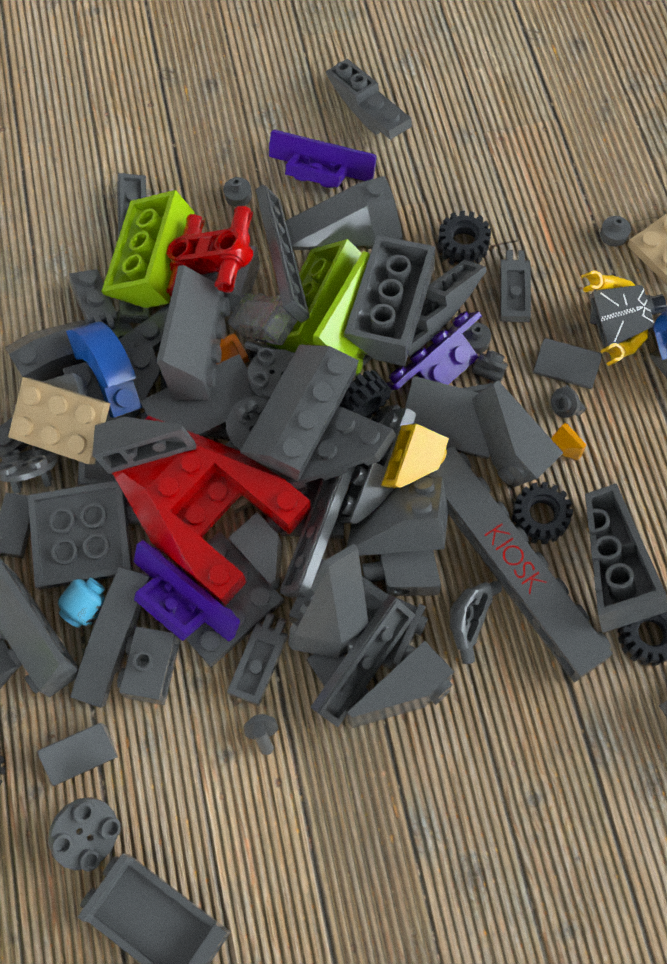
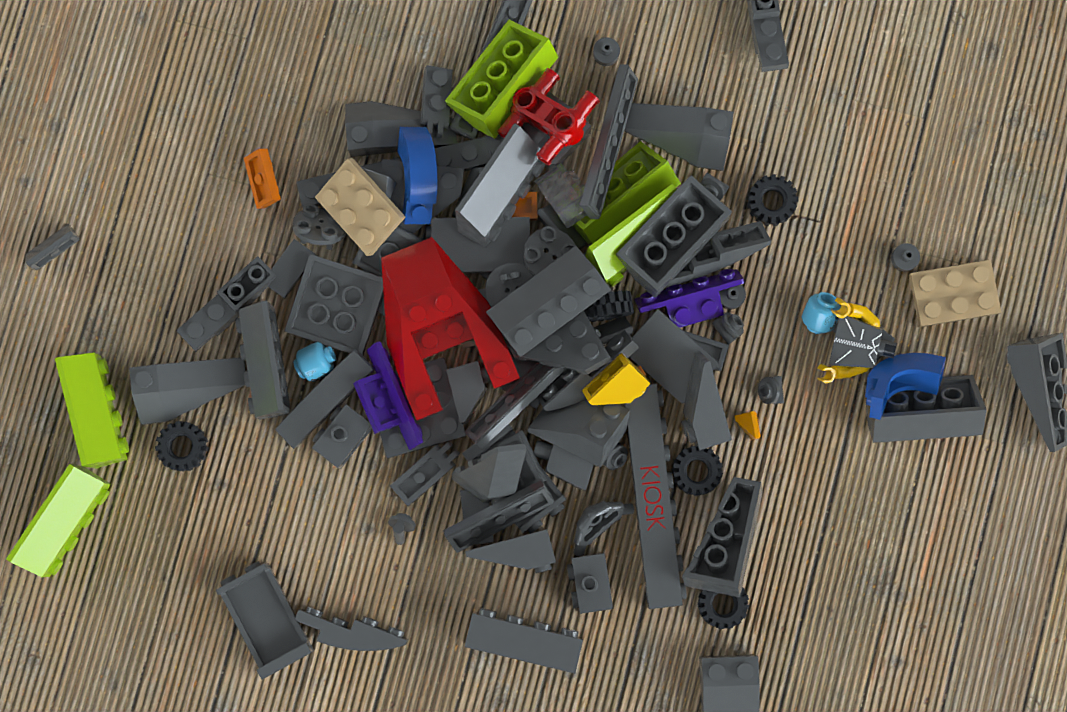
camera: 25 degrees right, 15 degrees up
(73, 848) = (233, 542): dark grey plate -> none
(77, 753) = (262, 474): dark grey slope -> none
(136, 441) = (404, 259): dark grey slope -> none
(278, 882) = (363, 635): none -> dark grey slope
(320, 160) = (689, 61): dark purple bracket -> none
(453, 544) = (617, 457): none -> dark grey plate
(467, 784) = (523, 641): none -> dark grey brick
(500, 684) = (591, 583): none -> dark grey brick
(515, 288) = (788, 268): dark grey hinge -> none
(567, 363) = (791, 358): dark grey slope -> none
(571, 308) = (818, 313): none -> medium azure head

